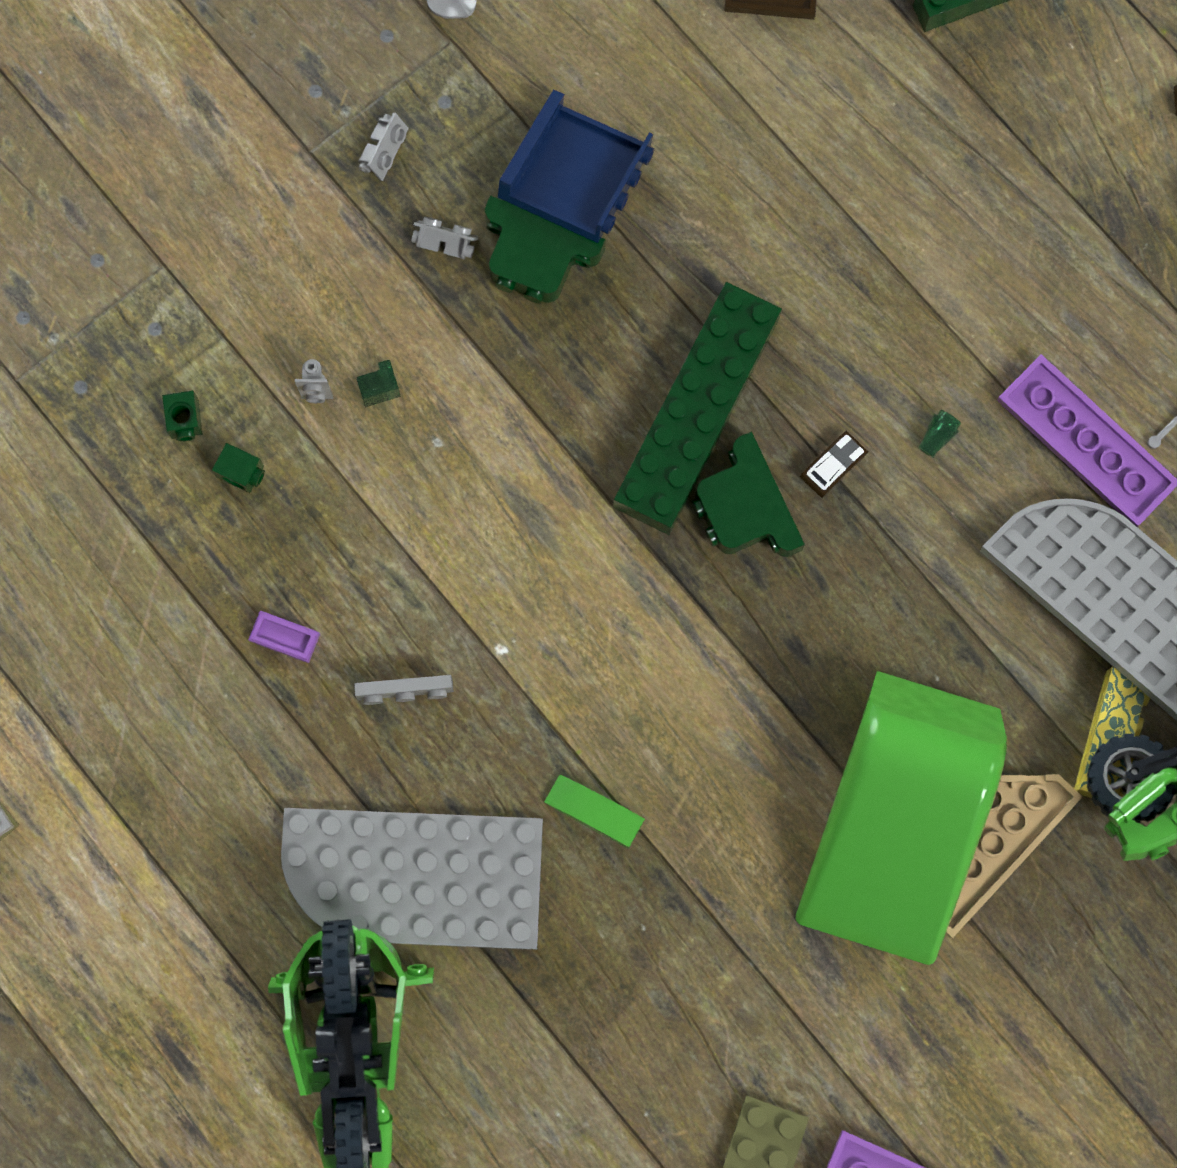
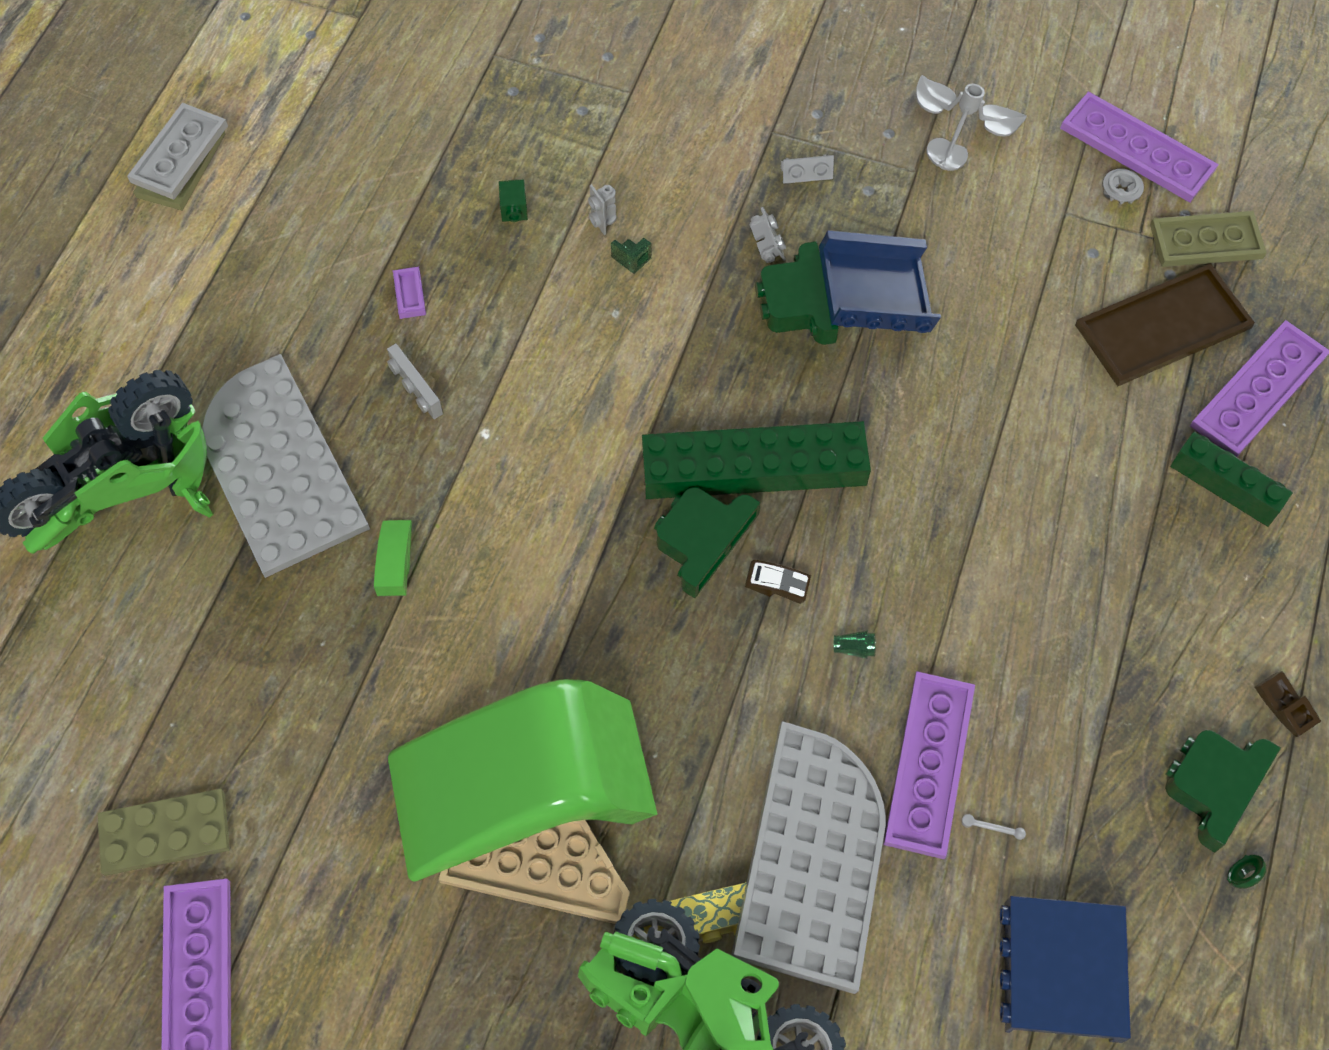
camera: 60 degrees right, 15 degrees down
(176, 404) = (529, 150): dark green brick -> none

